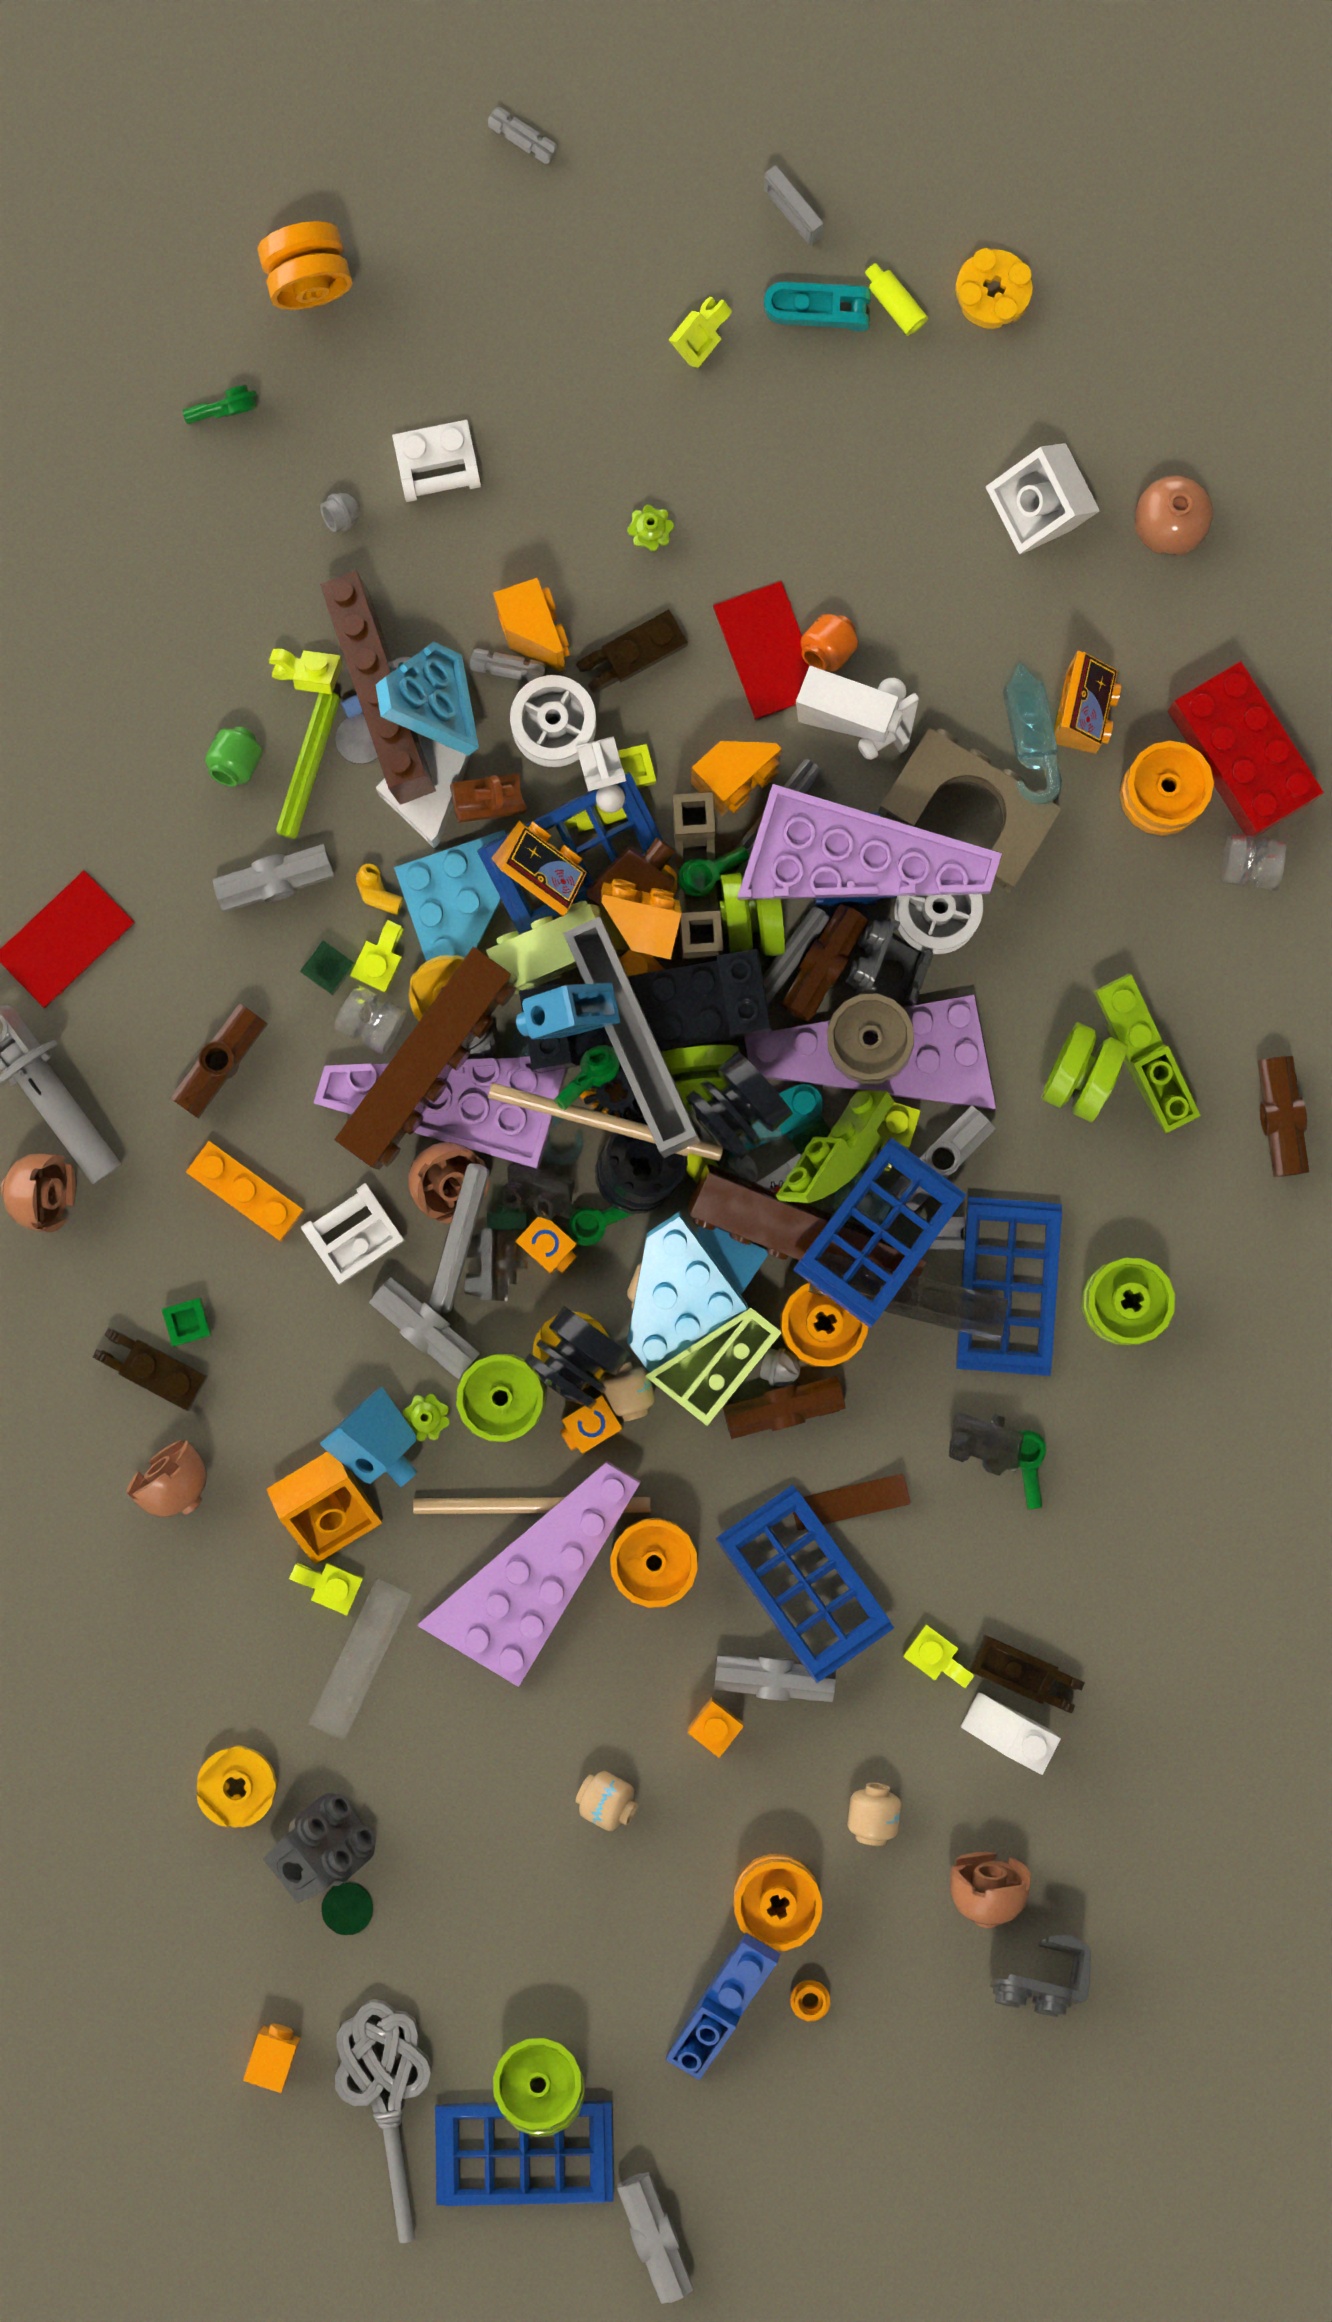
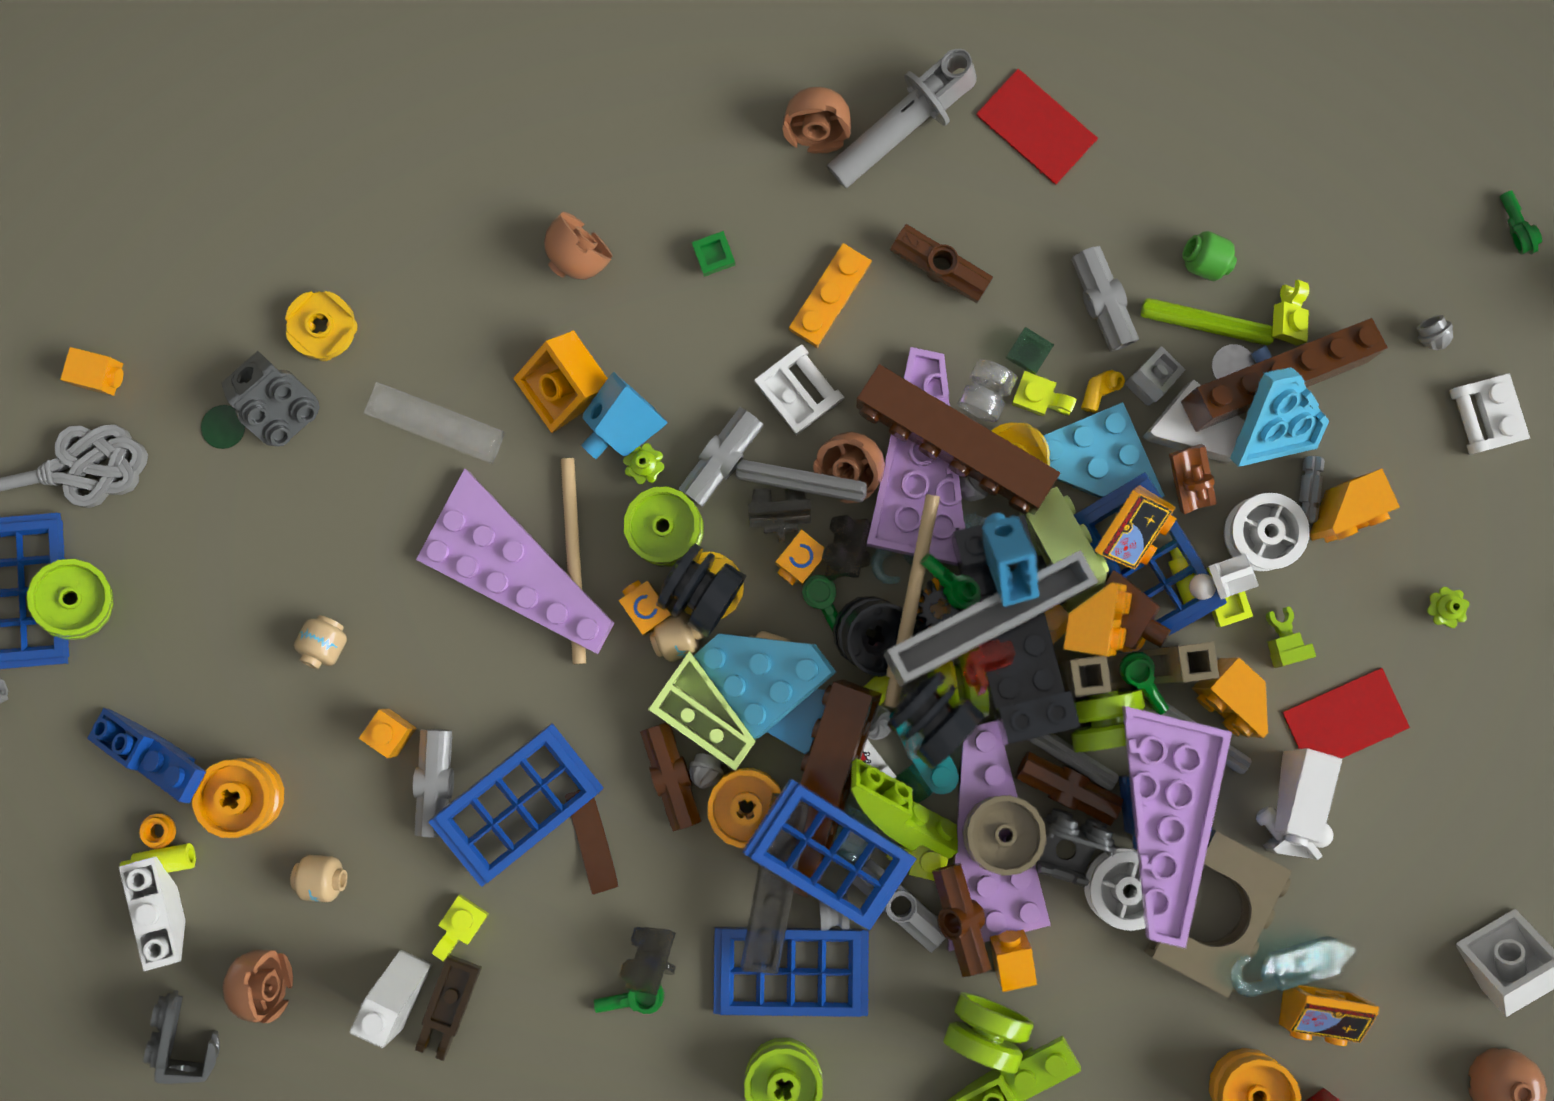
camera: 85 degrees right, 0 degrees up
(154, 1370) = (671, 229): dark brown hinge -> none
(333, 1587) = (493, 394): neon yellow plate -> none
(366, 828) = (1155, 377): none -> light grey slope
(507, 1219) = (820, 521): clear green plate -> none
(630, 1558) = (548, 673): light orange wheel -> none
(635, 650) = (1334, 601): dark brown hinge -> none
(674, 1041) = (989, 657): none -> clear red bracket
(682, 706) = (1289, 646): none -> lime piece
(829, 642) = (1361, 775): orange head -> none
(844, 1998) = (172, 858): none -> neon yellow cylinder
(901, 2003) = (154, 912): none -> white slope
(960, 1092) = (961, 920): none -> reddish brown piece
(1009, 1039) = (1013, 960): none -> light orange brick

